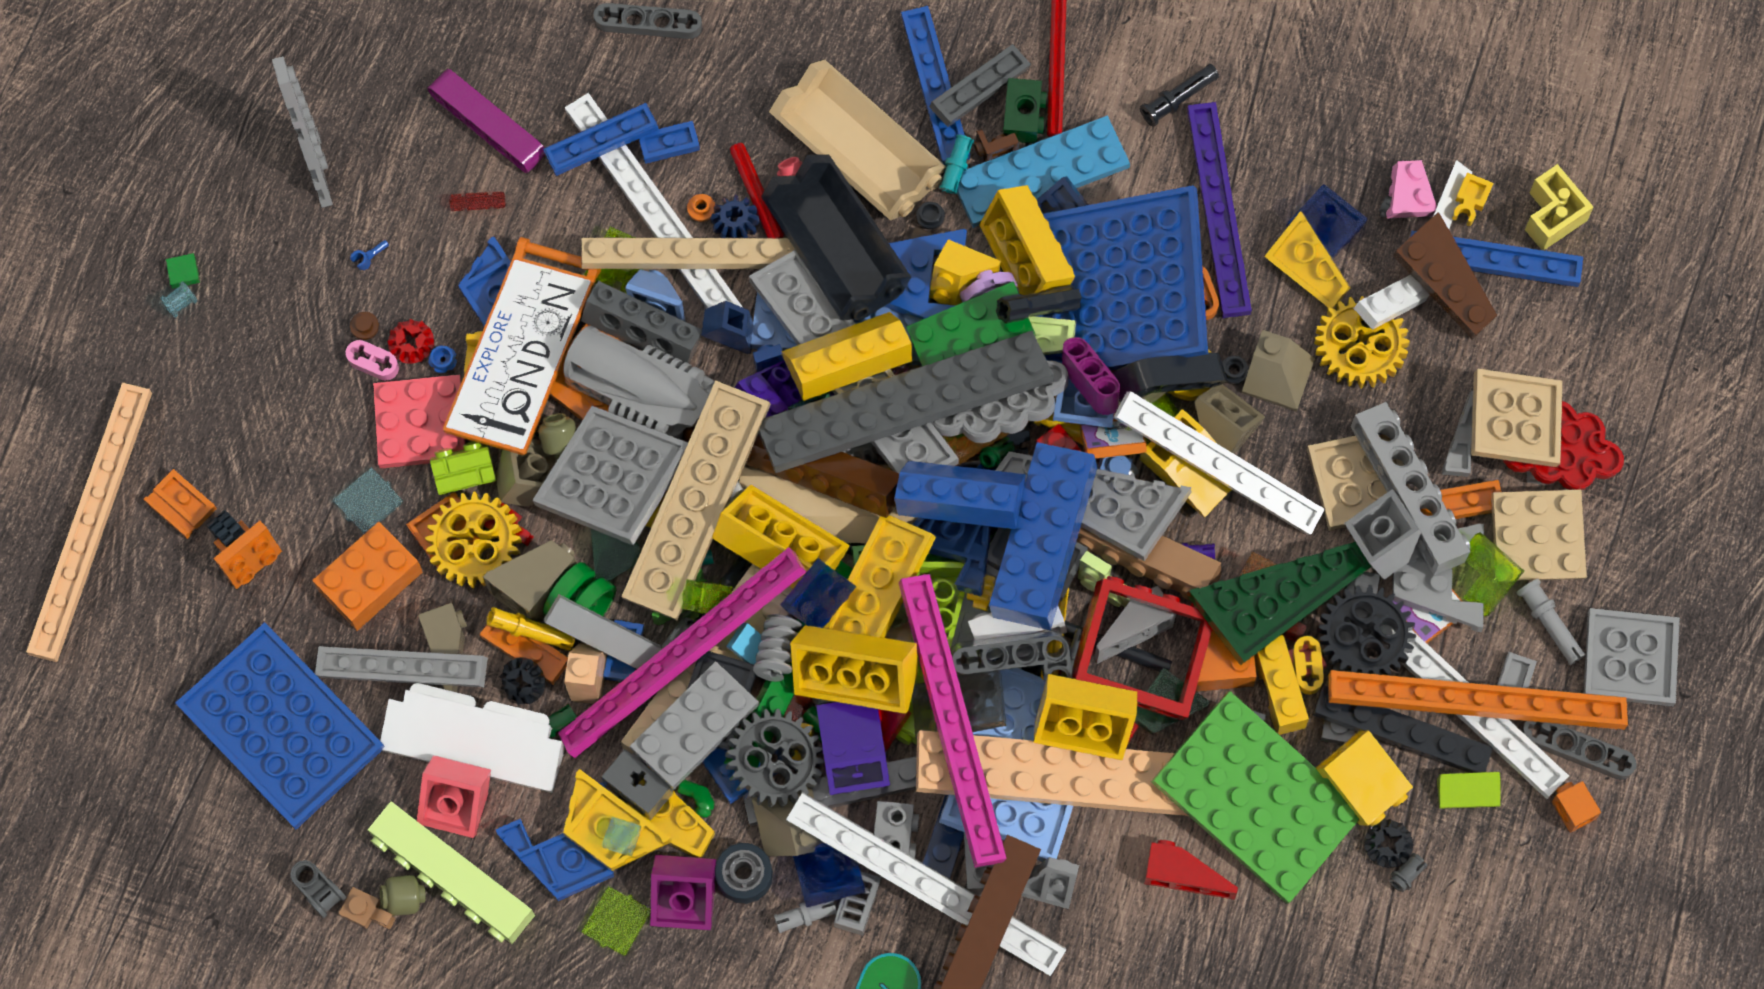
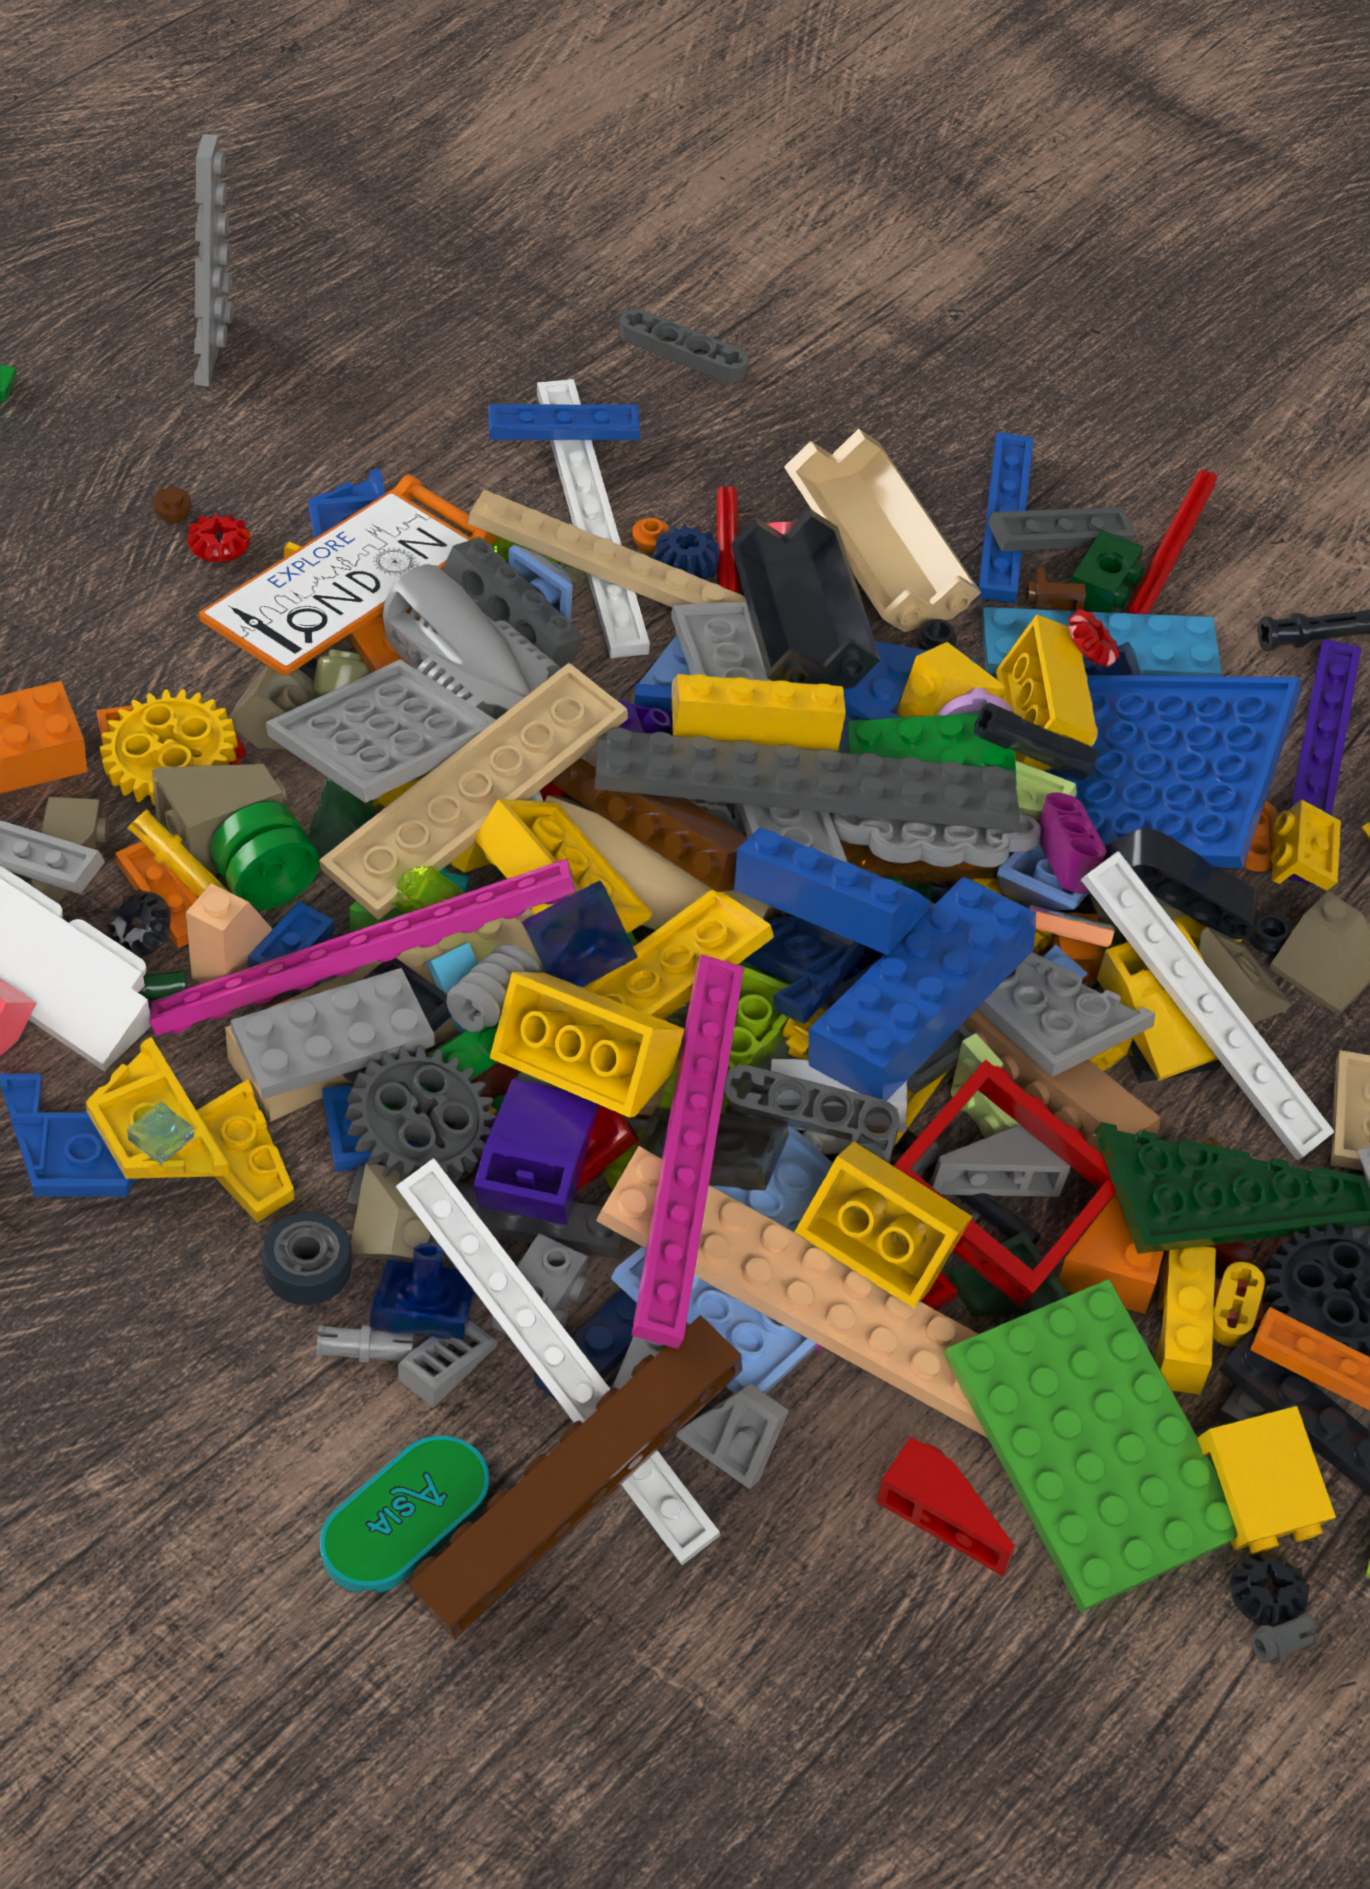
camera: 15 degrees right, 20 degrees down
(365, 264) = (210, 444): blue hand -> none
(368, 500) = (74, 666): clear light blue piece -> none
(374, 354) = (154, 542): bright pink beam -> none
(412, 419) = (162, 621): coral plate -> none
(442, 352) = (245, 565): blue plate -> none
(462, 468) = (212, 672): lime brick -> none
(477, 201) = (381, 436): clear red axle -> none
(487, 120) = (437, 366): magenta beam -> none
(600, 632) = (265, 883): light grey tile -> none
(616, 921) = (99, 1253): clear neon green piece -> none
(646, 798) = (219, 1086): dark grey brick -> none
(669, 142) = (646, 459): blue plate -> none
(682, 892) = (207, 1247): magenta slope -> none
(700, 795) = (299, 1142): green arm -> none
(729, 326) = (622, 645): dark blue slope -> none
(956, 164) = (995, 592): teal pin -> none
(1040, 189) = (1093, 638): none -> red gear
(1236, 296) = (1306, 845): none -> yellow bracket

